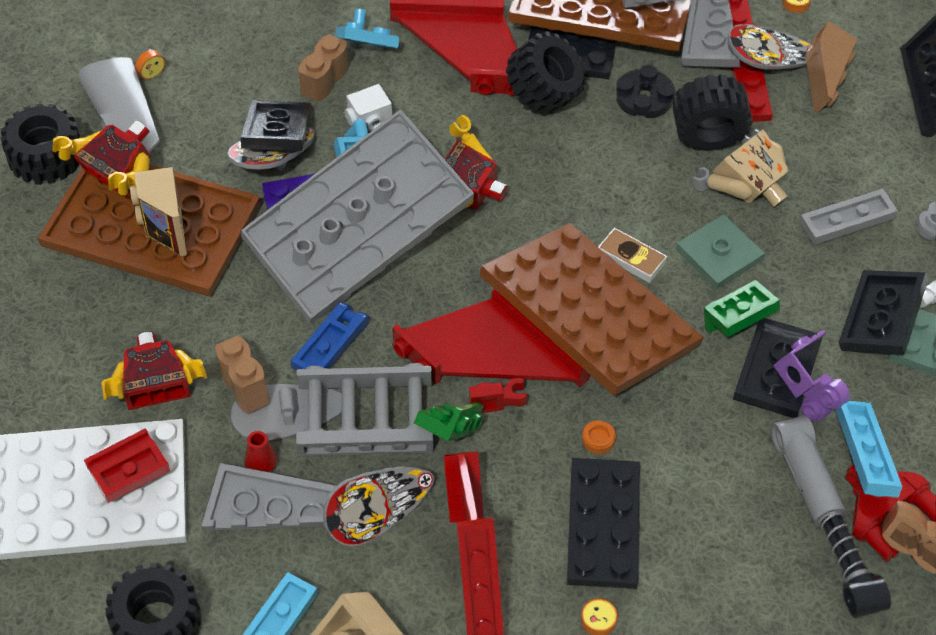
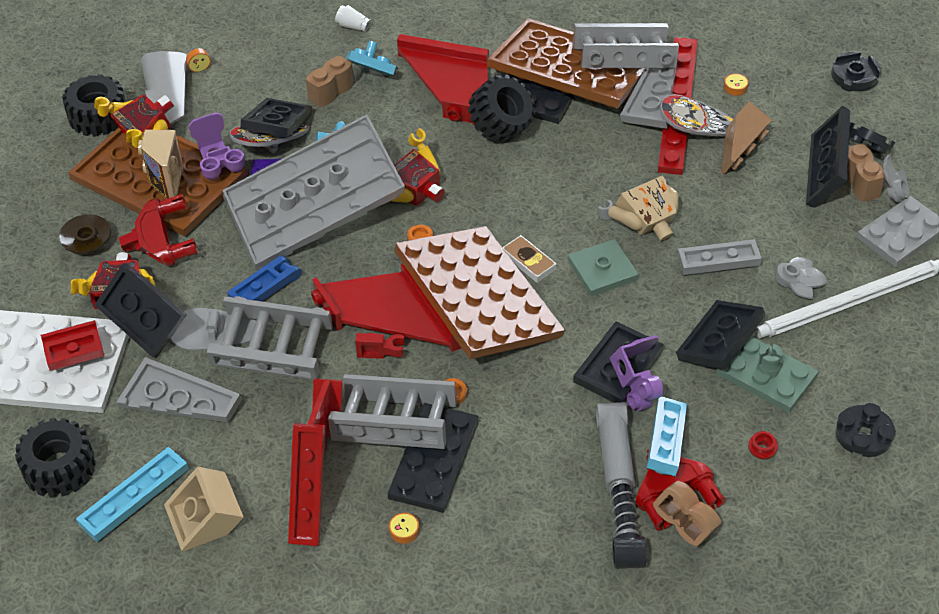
camera: 15 degrees right, 5 degrees down
(86, 305) = (85, 233): none -> dark brown dish
(174, 306) = (151, 232): none -> red connector
(198, 404) = (140, 309): none -> black plate
(203, 165) = (208, 135): none -> medium lavender piece
(242, 374) = (186, 293): medium nougat brick -> none
(260, 453) = (178, 354): red cone -> none
(369, 105) = (353, 110): white brick -> none
(373, 503) = (252, 407): shield -> none
(451, 421) = (334, 356): green bracket -> none
(494, 246) = (418, 232): none -> orange tile
(548, 501) = (388, 429): none -> light grey fence
(649, 79) = (588, 127): black plate -> none
(712, 112) = (626, 157): black tyre -> none
(740, 309) = (599, 311): green bracket -> none

